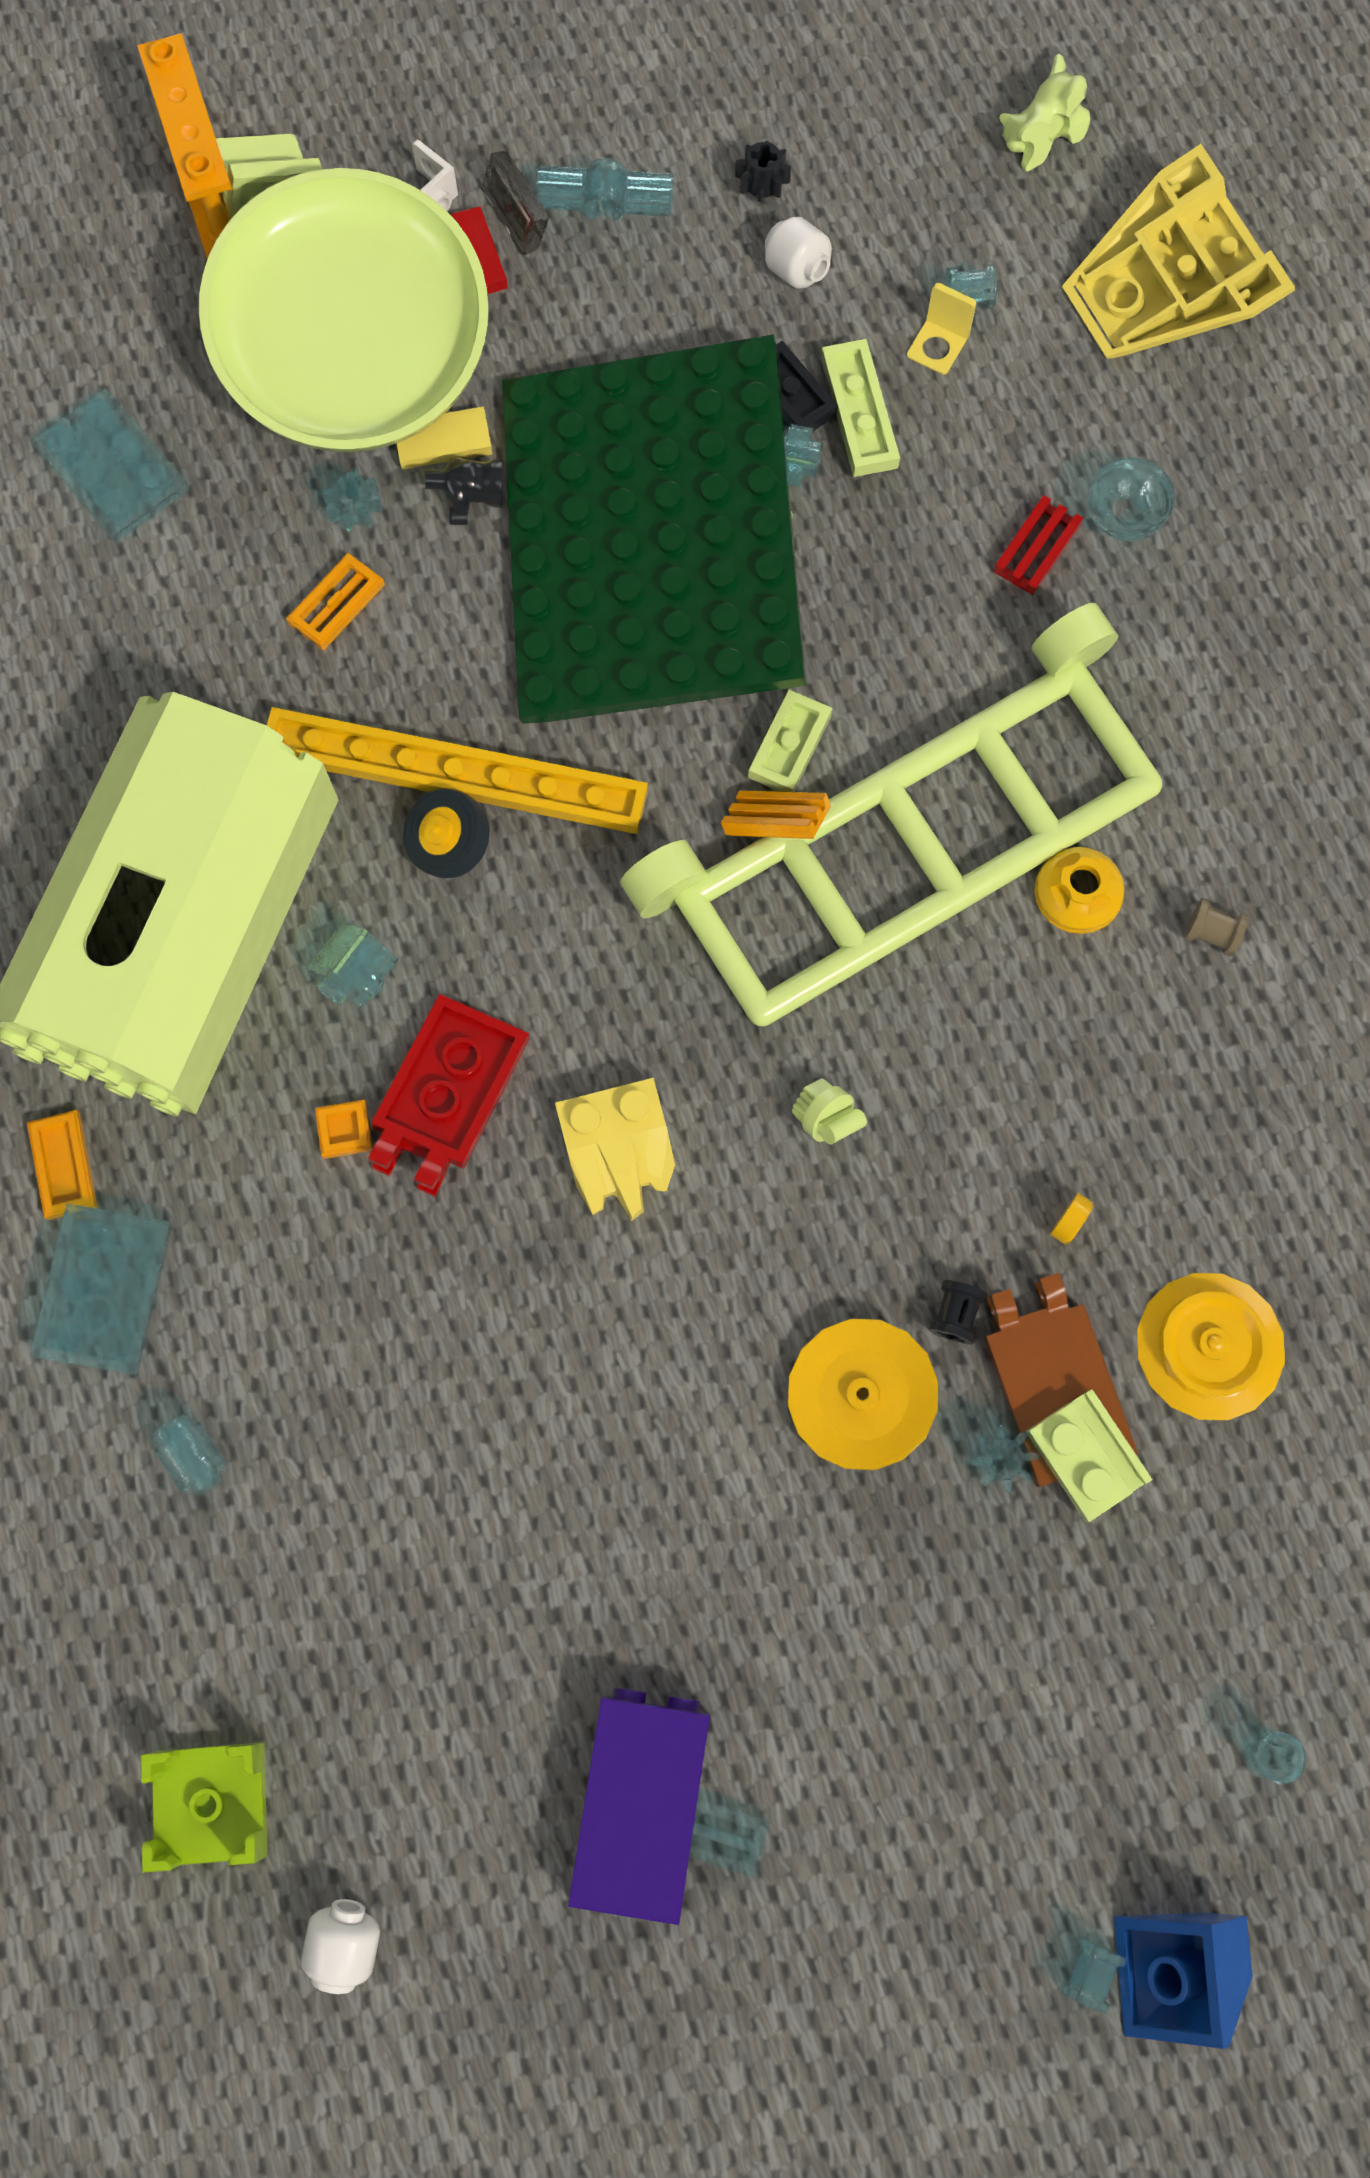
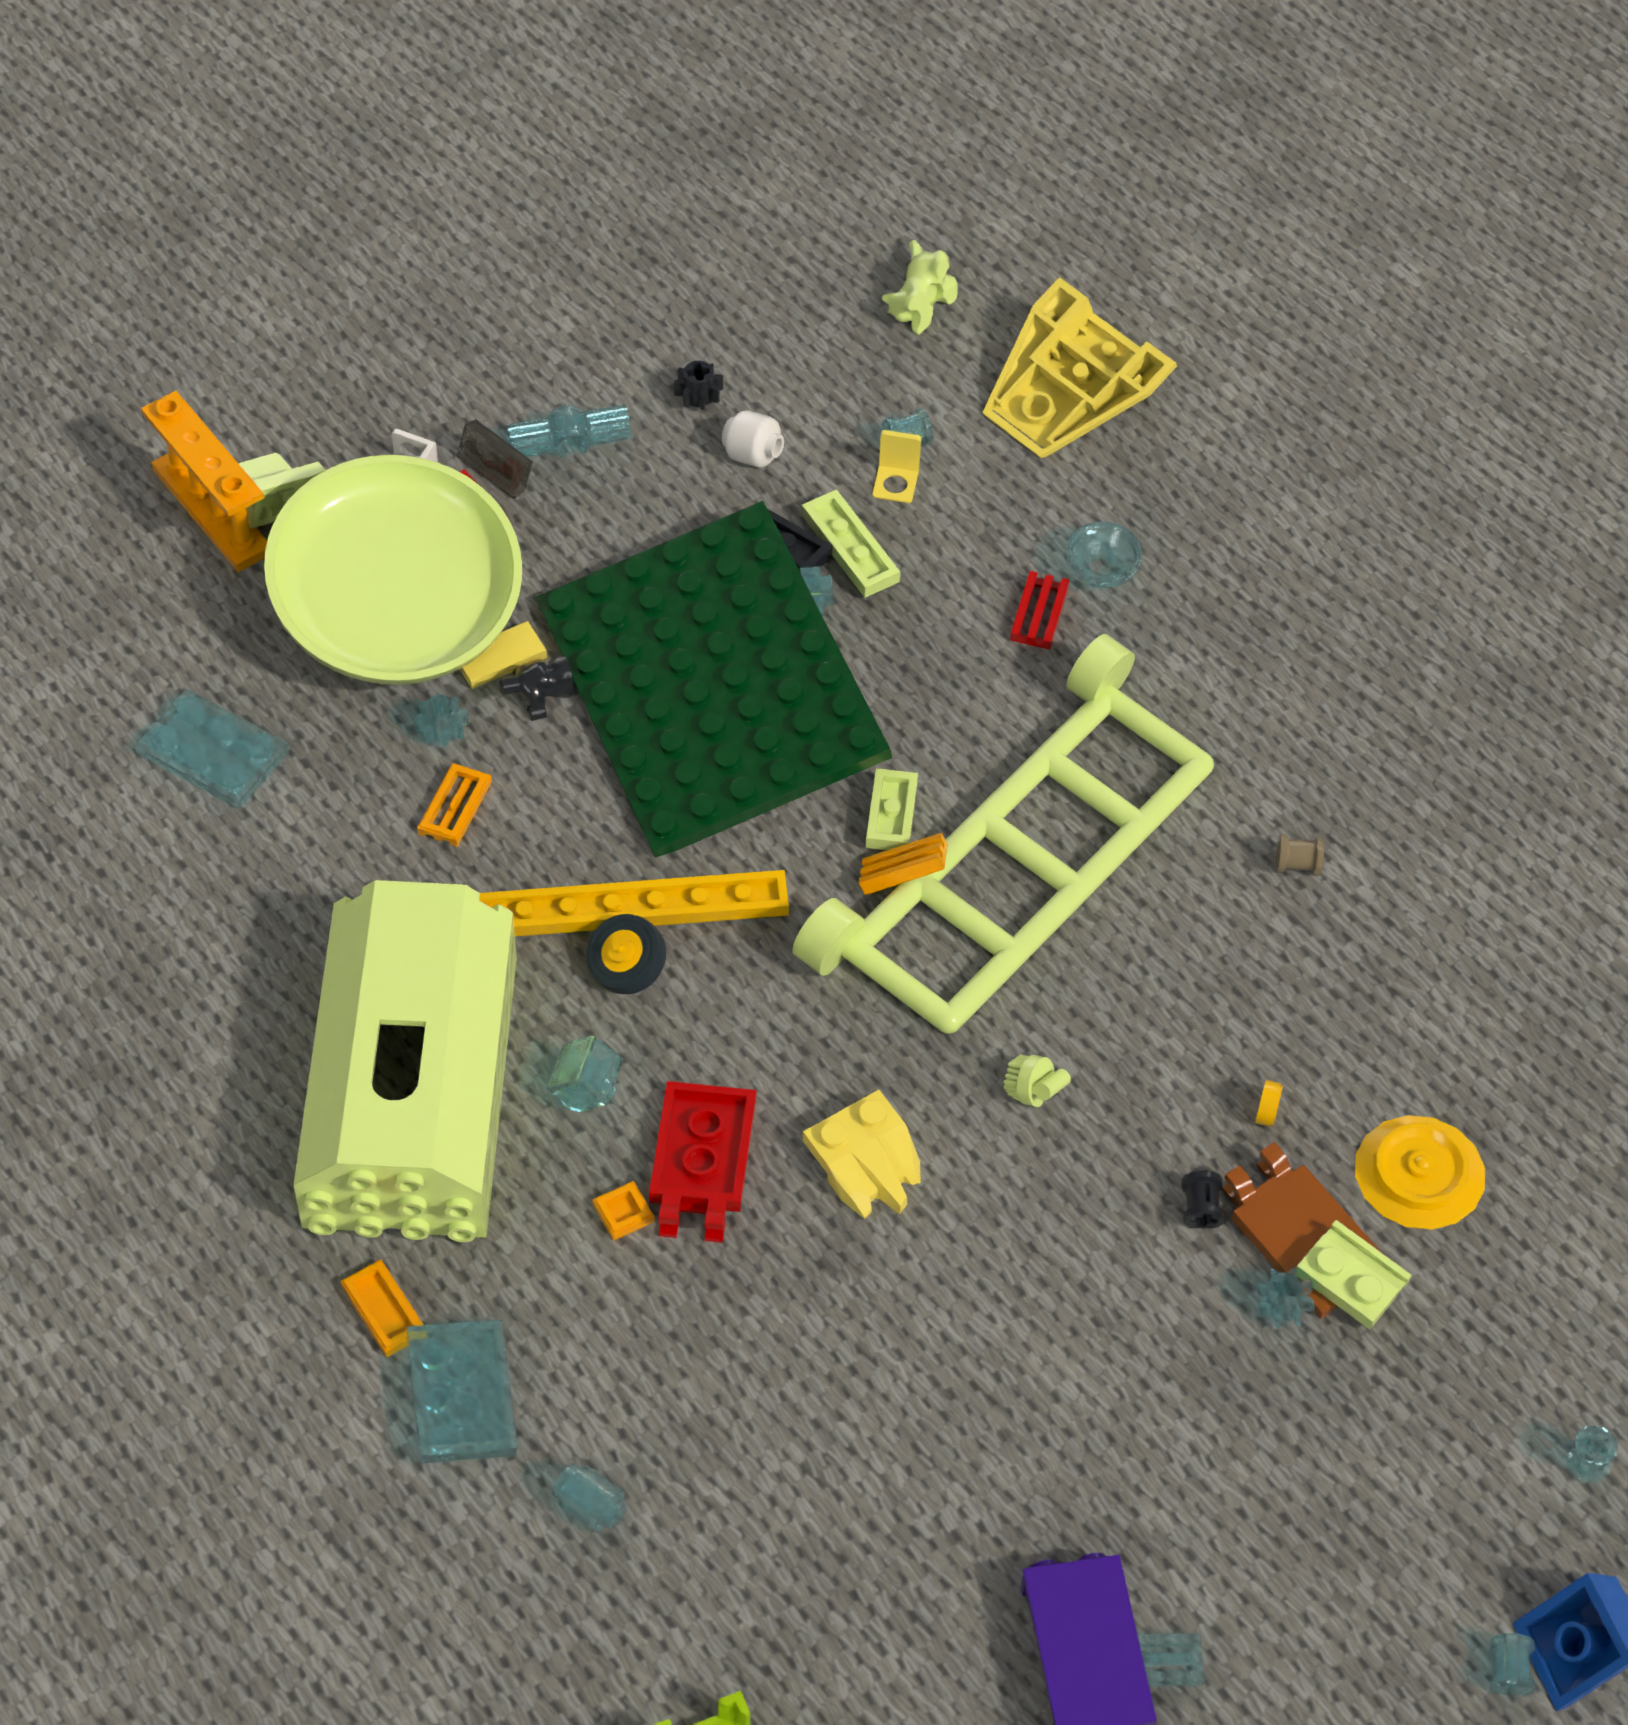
camera: 20 degrees left, 20 degrees down
(863, 1394) = (1149, 1281): yellow piece -> none
(1069, 908) = (1176, 872): yellow piece -> none

